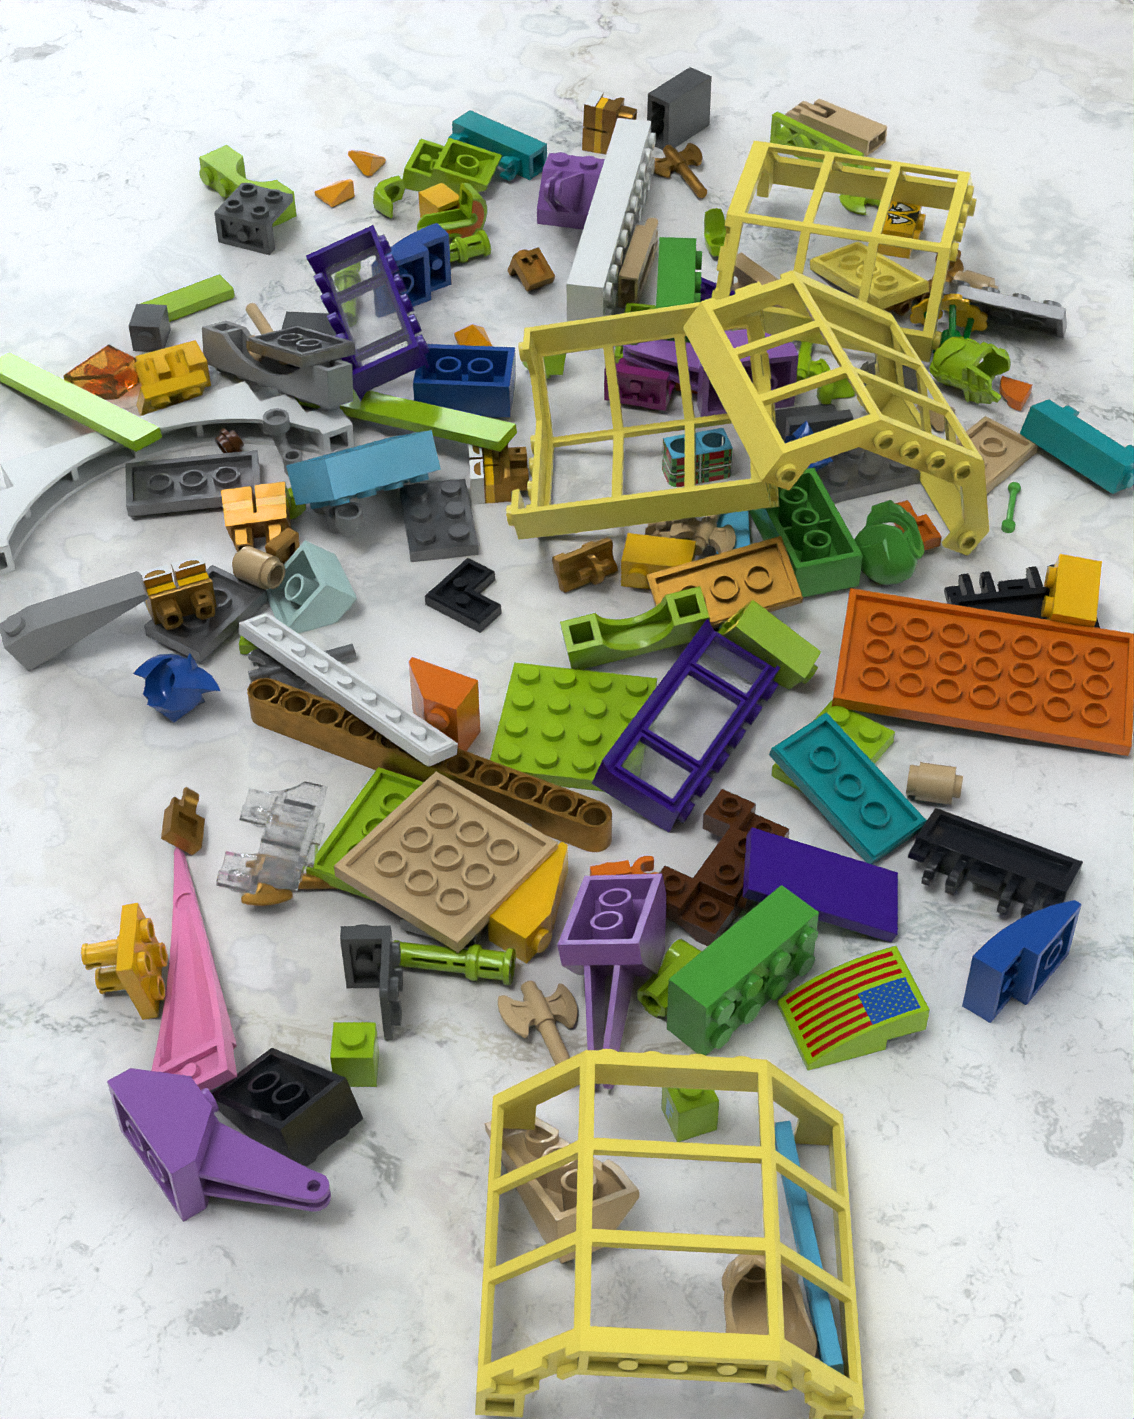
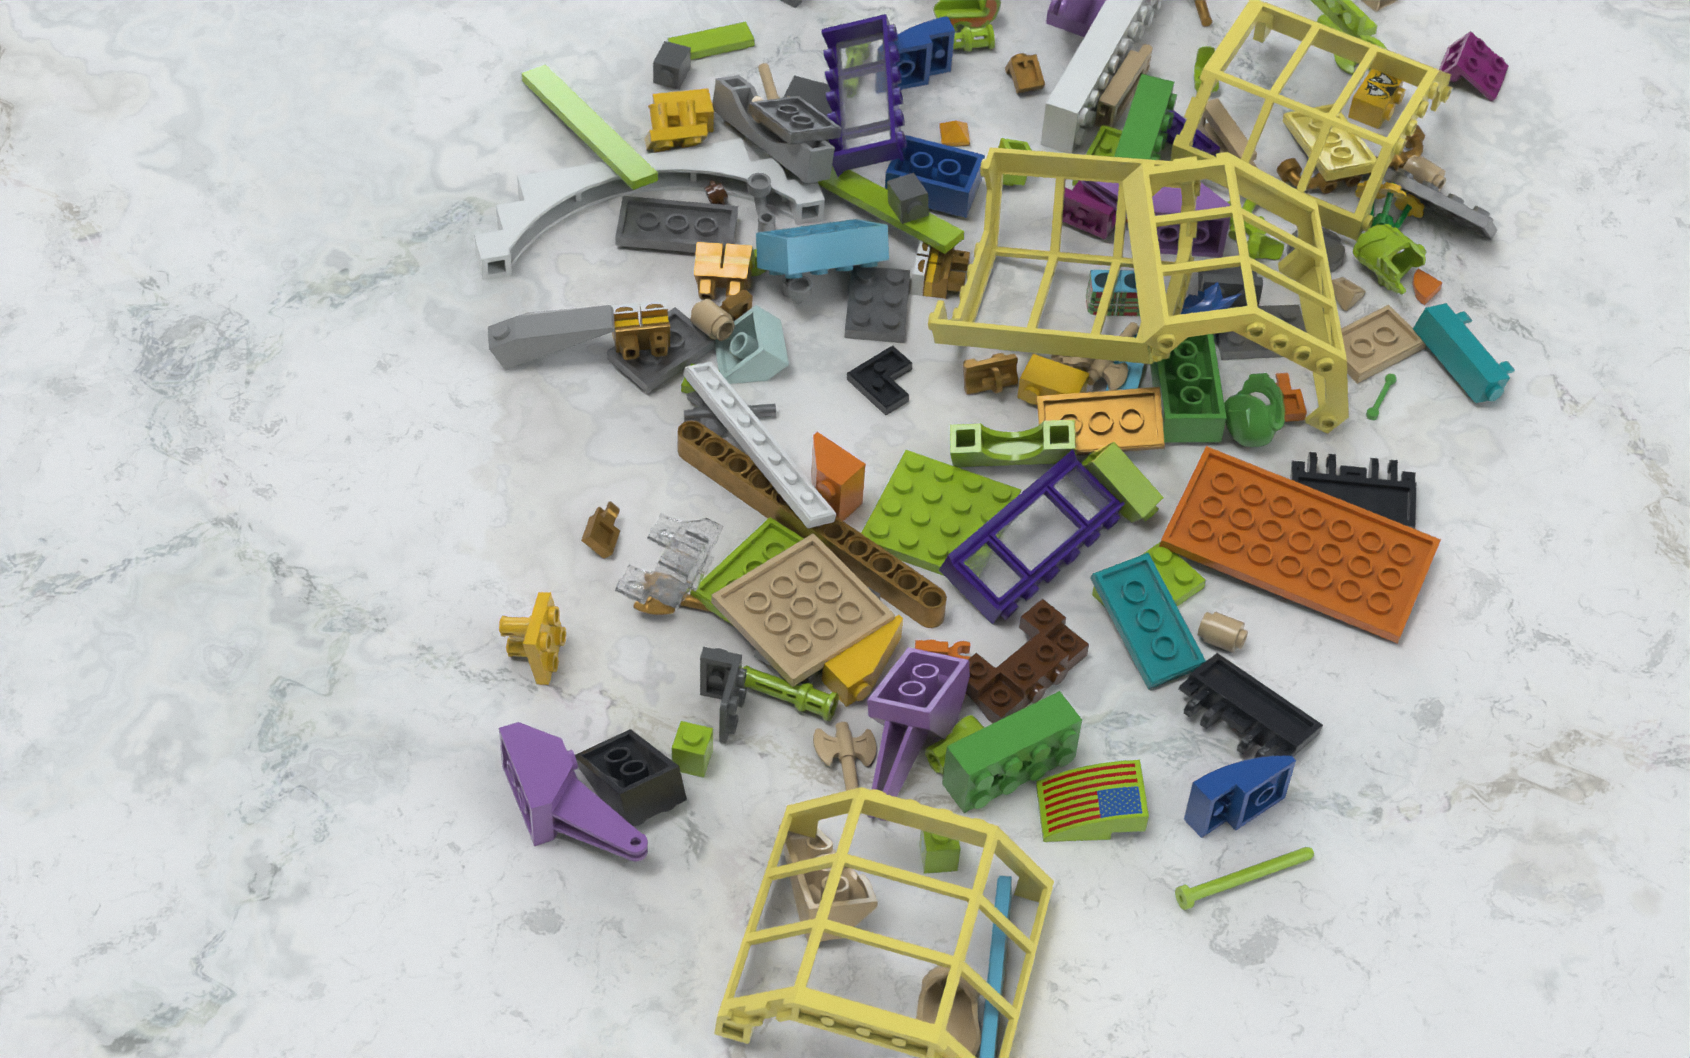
camera: 10 degrees right, 5 degrees up
(106, 373) = (623, 104): clear orange slope -> none
(175, 684) = (620, 409): blue hair -> none
(195, 1023) = (575, 698): bright pink plate -> none
(445, 402) = (907, 198): none -> dark grey brick
(837, 886) = (1100, 696): dark purple tile -> none
(990, 180) = (1476, 63): none -> magenta bracket
(1001, 1096) = (1187, 896): none -> lime bar
(1073, 590) = (1398, 489): yellow brick -> none

